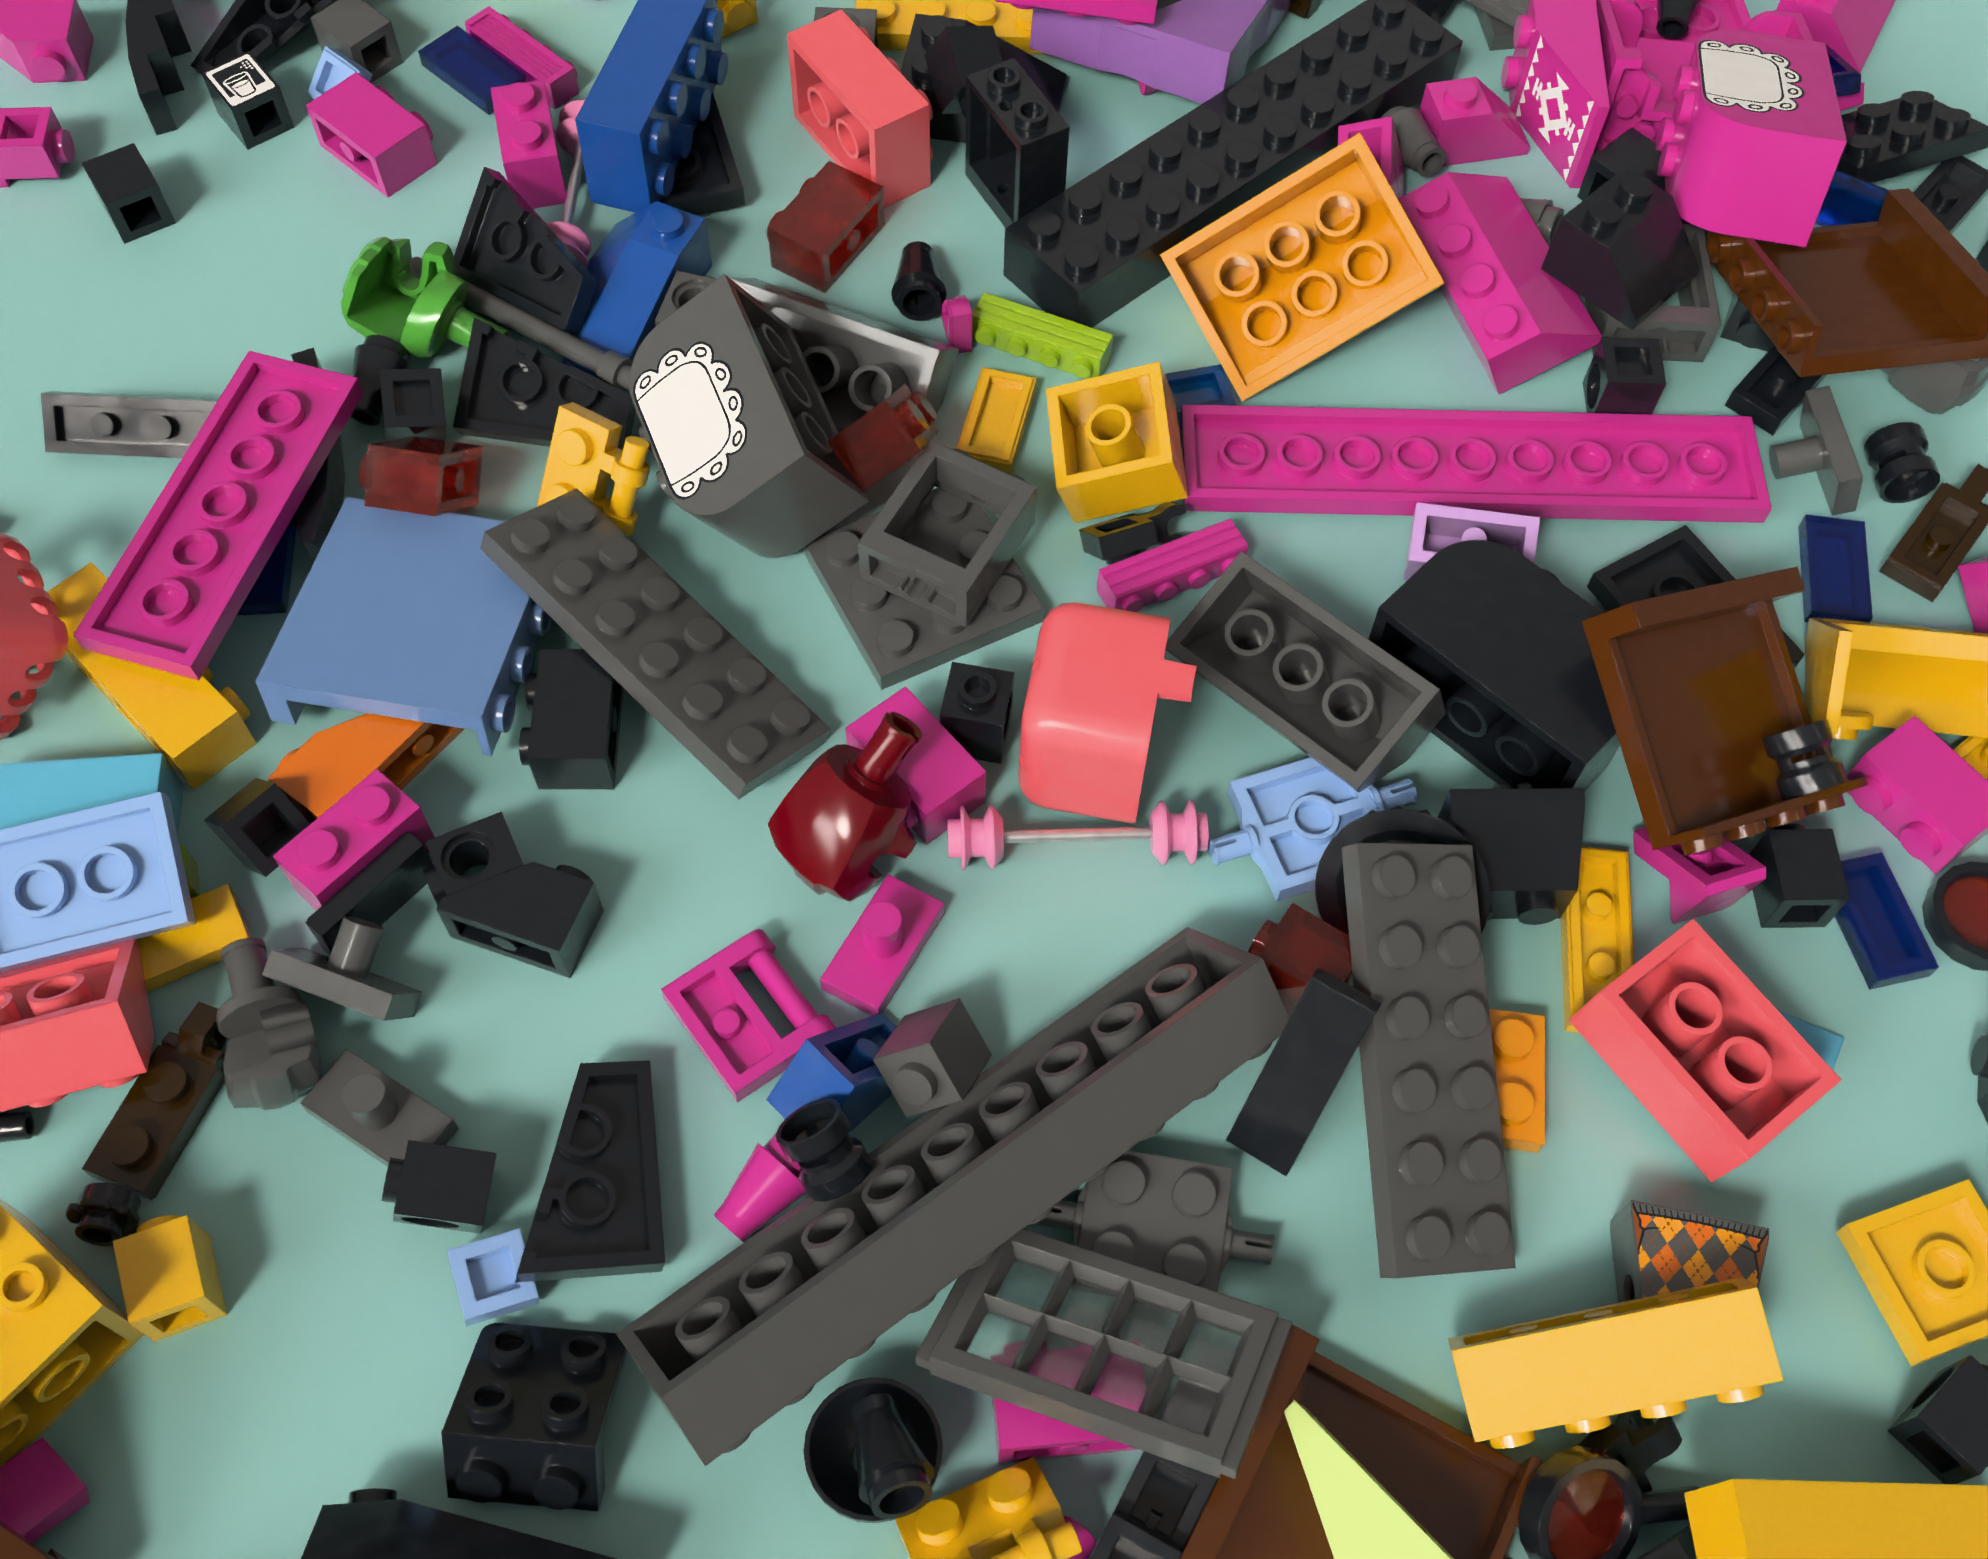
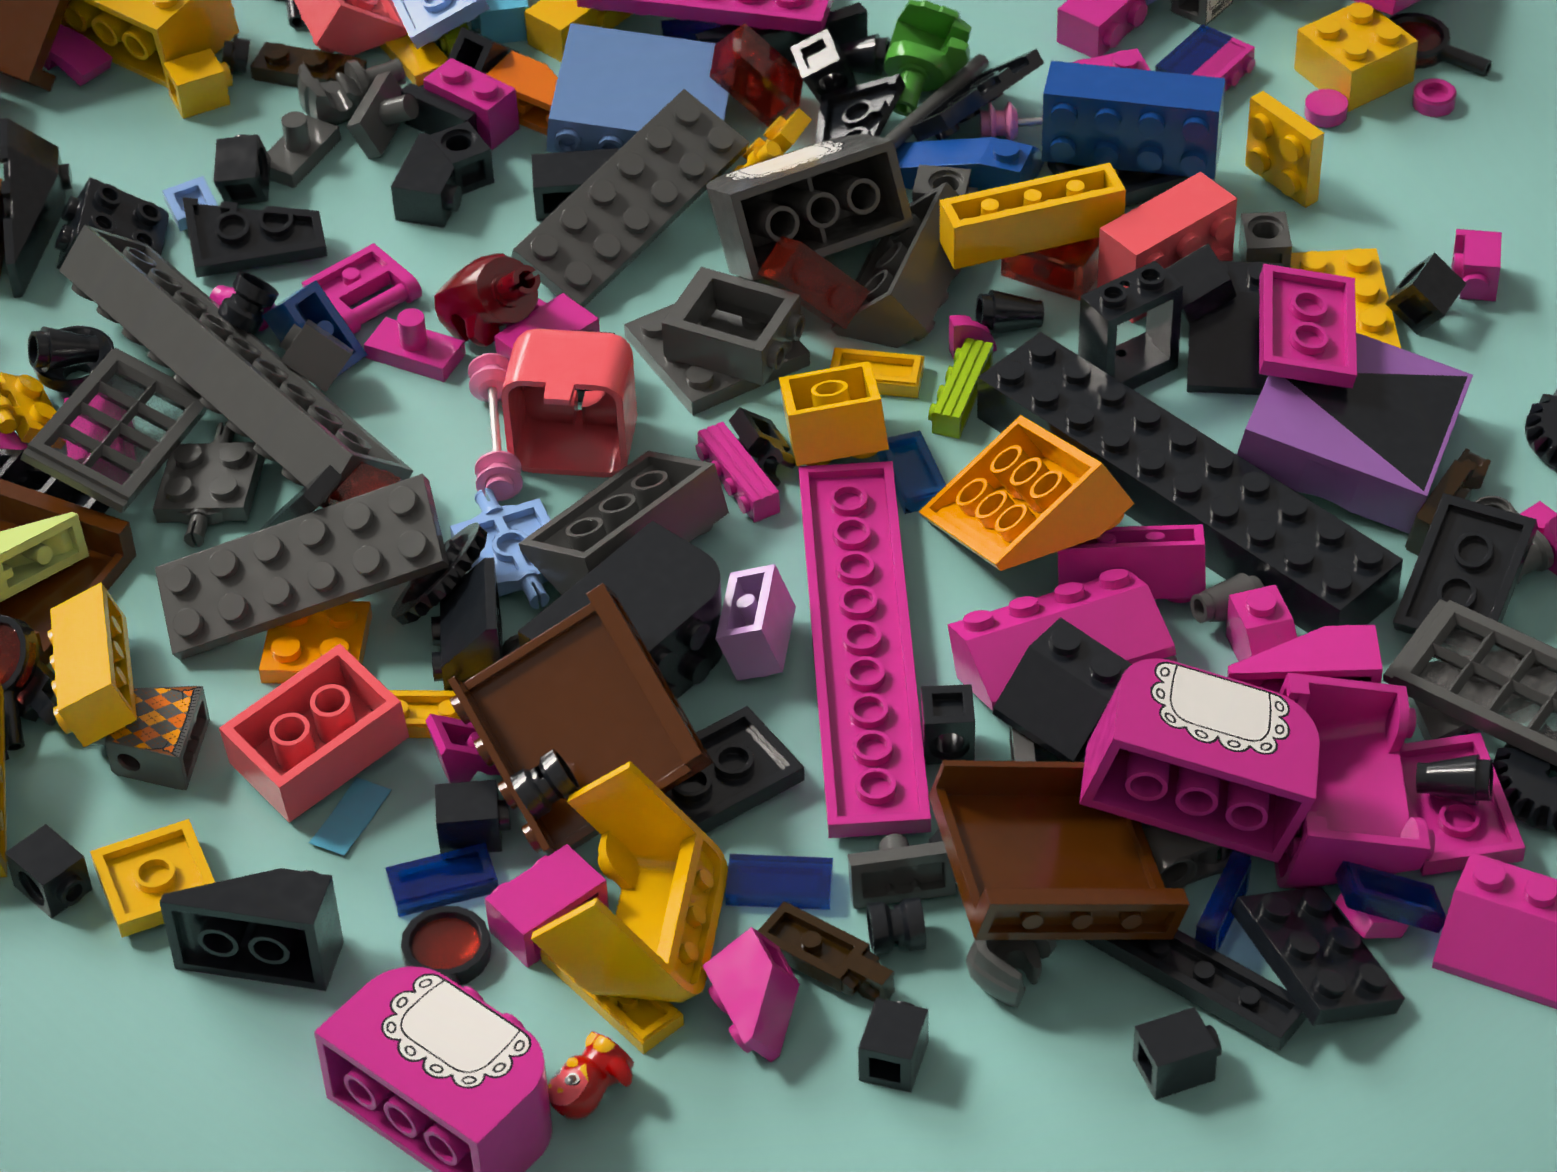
camera: 90 degrees right, 15 degrees down
(829, 197) = (1074, 212): none -> yellow brick

